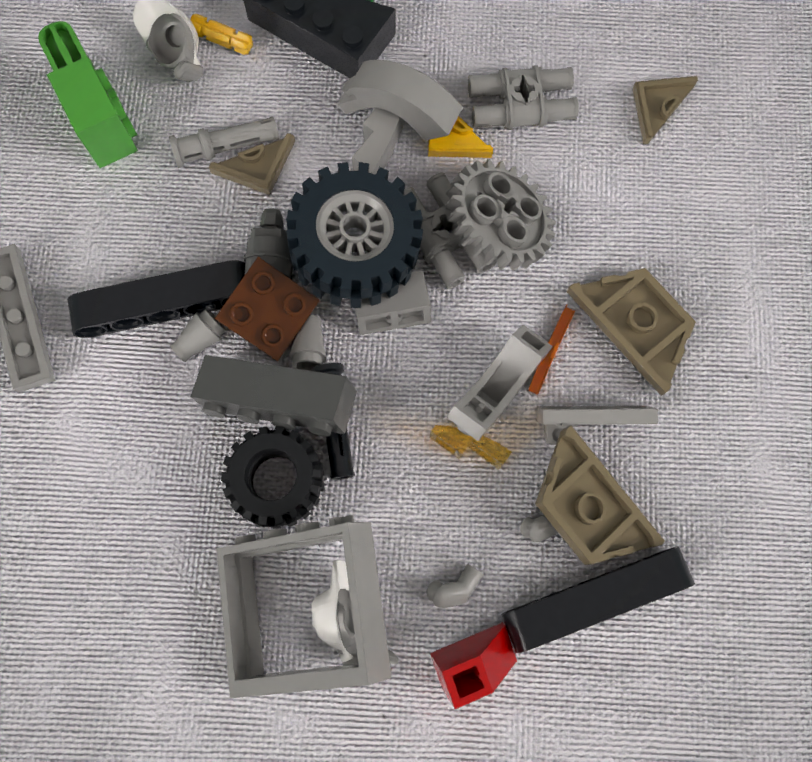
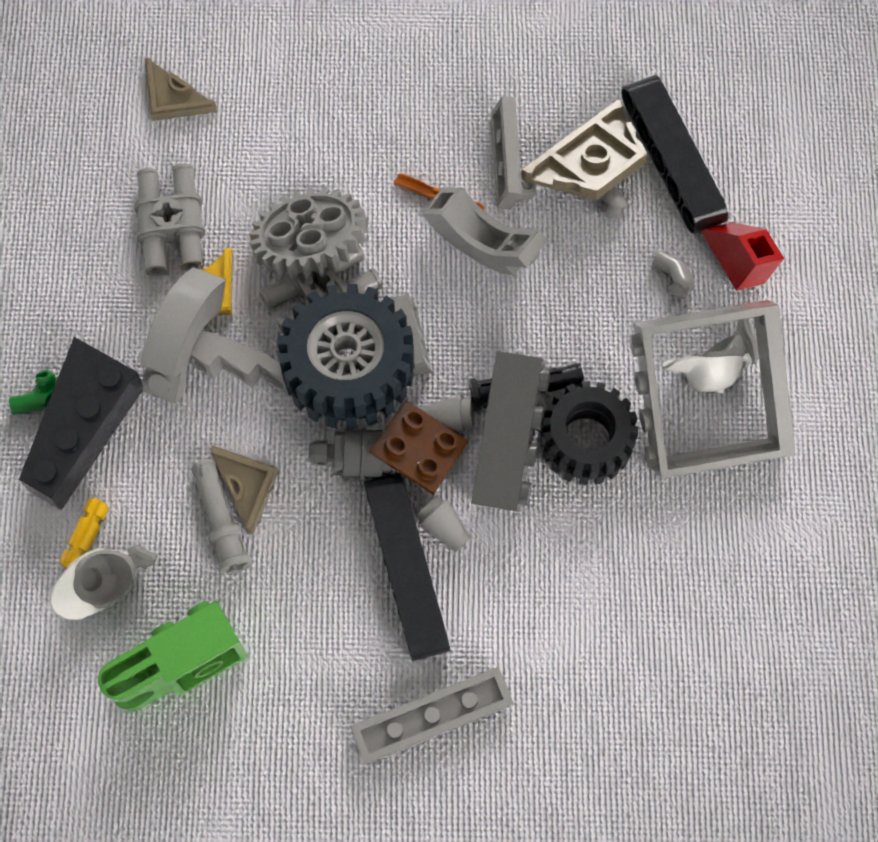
camera: 90 degrees left, 5 degrees down
(457, 444) = (542, 269): clear yellow slope -> none
(639, 321) = (410, 115): dark tan wing -> none

